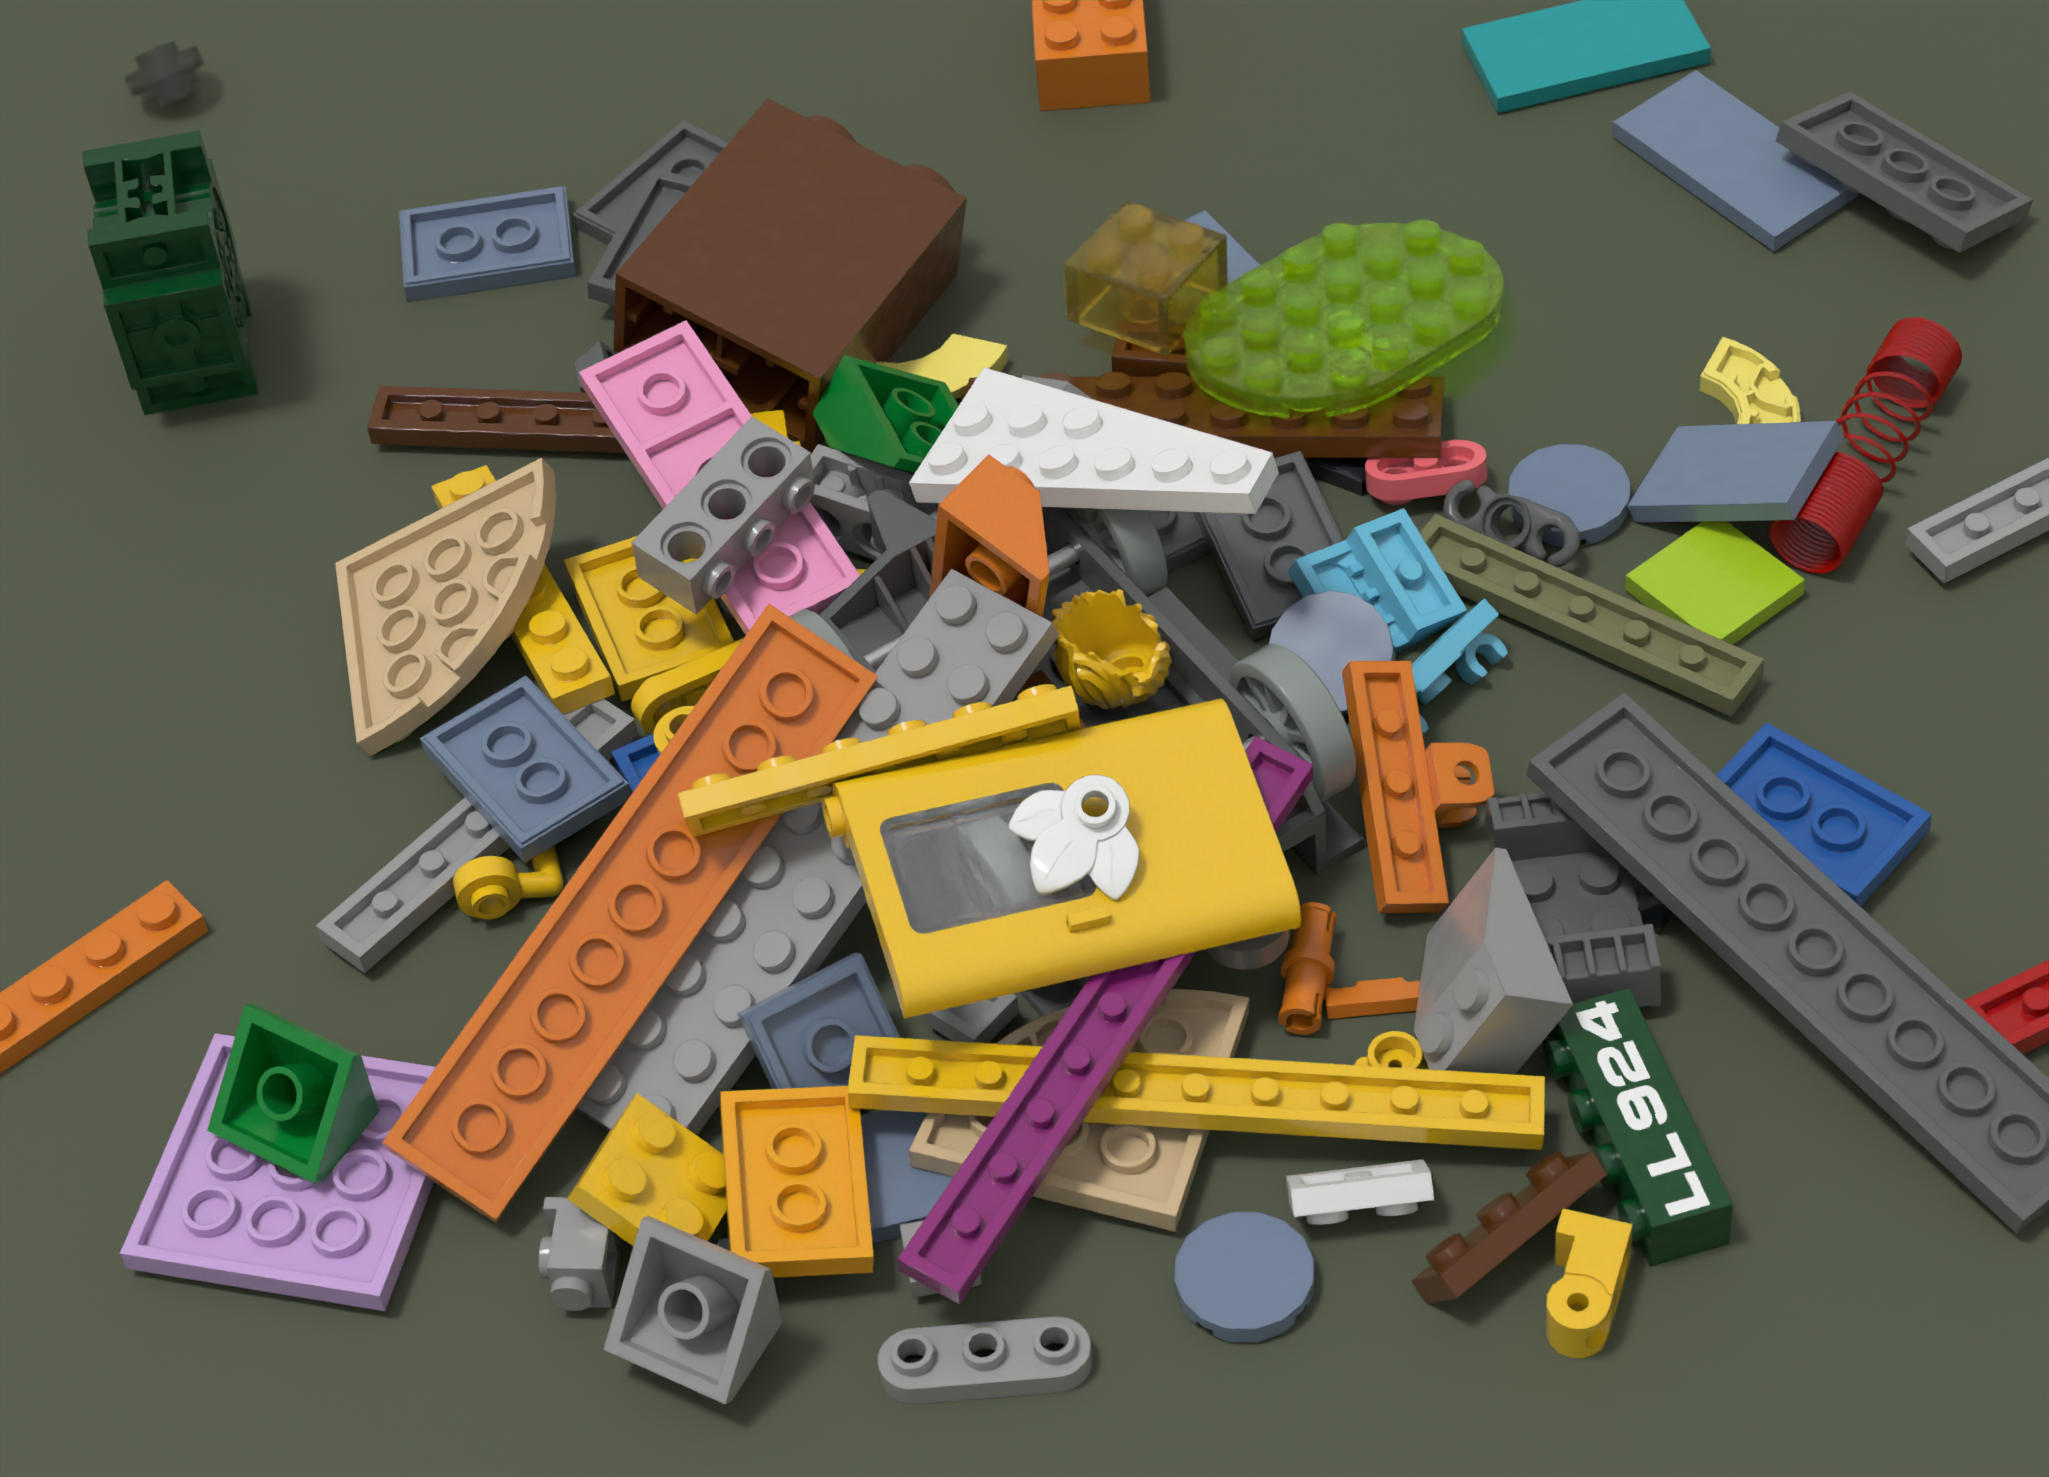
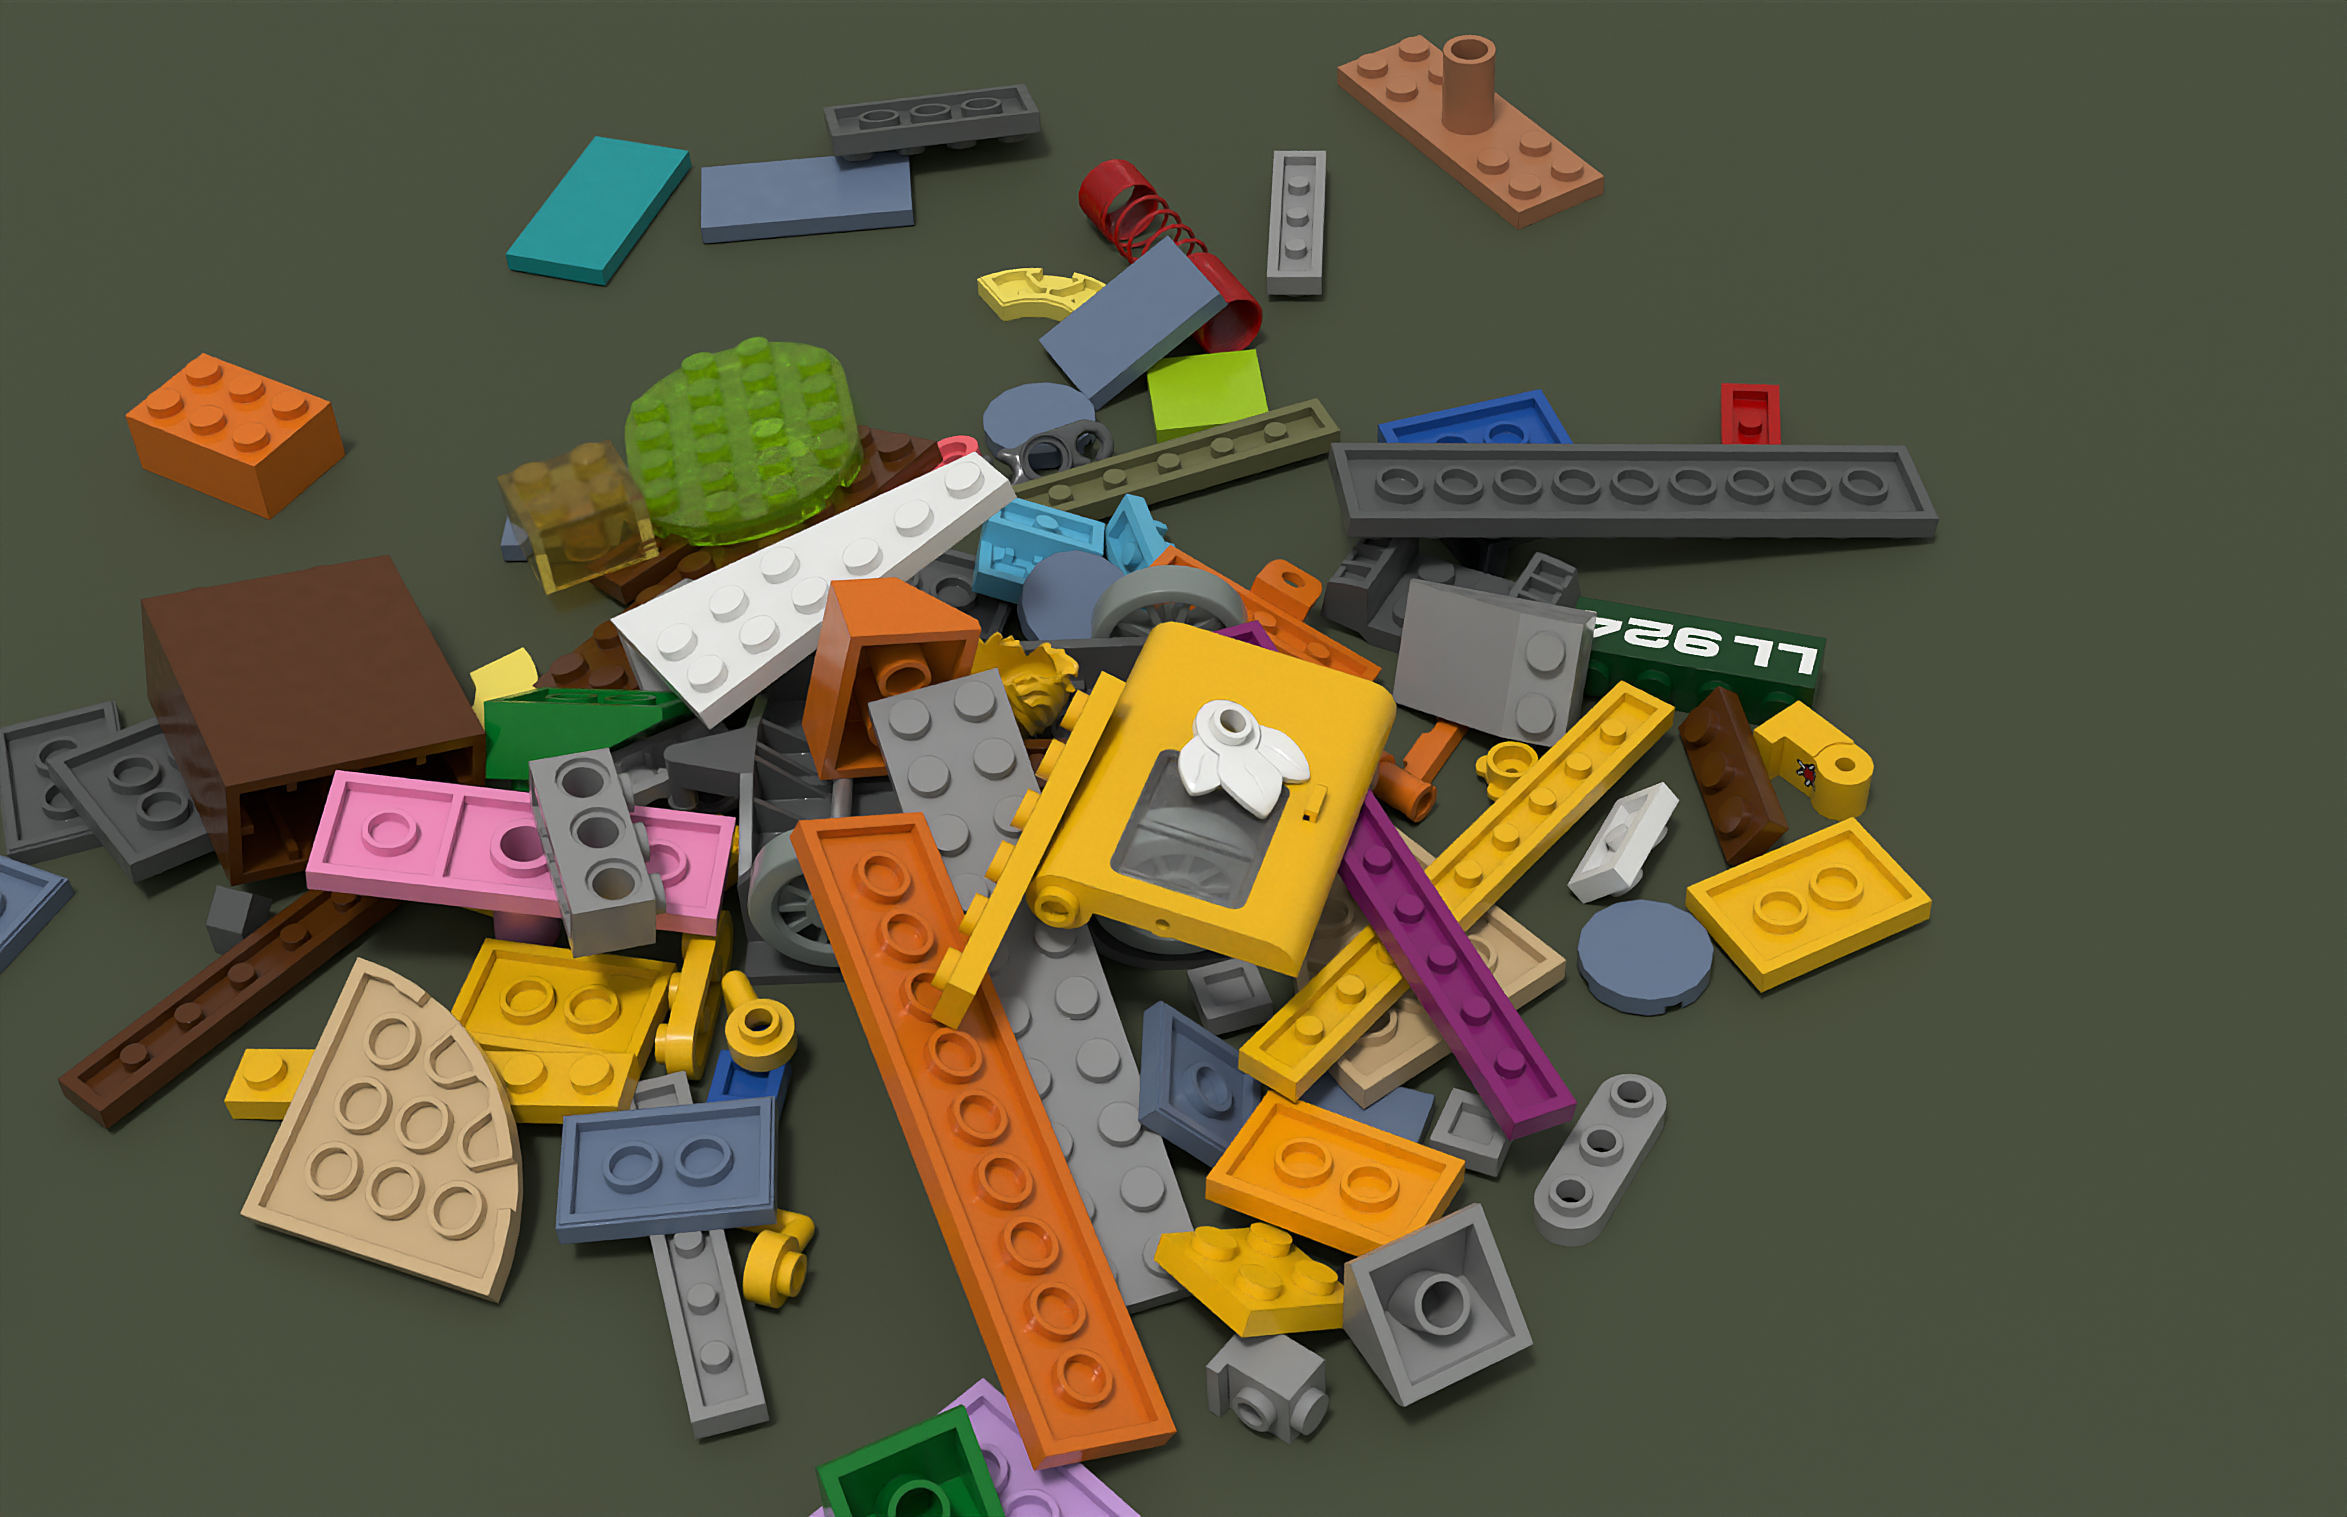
camera: 60 degrees left, 5 degrees down
(1396, 1364) = (1807, 903): none -> yellow plate

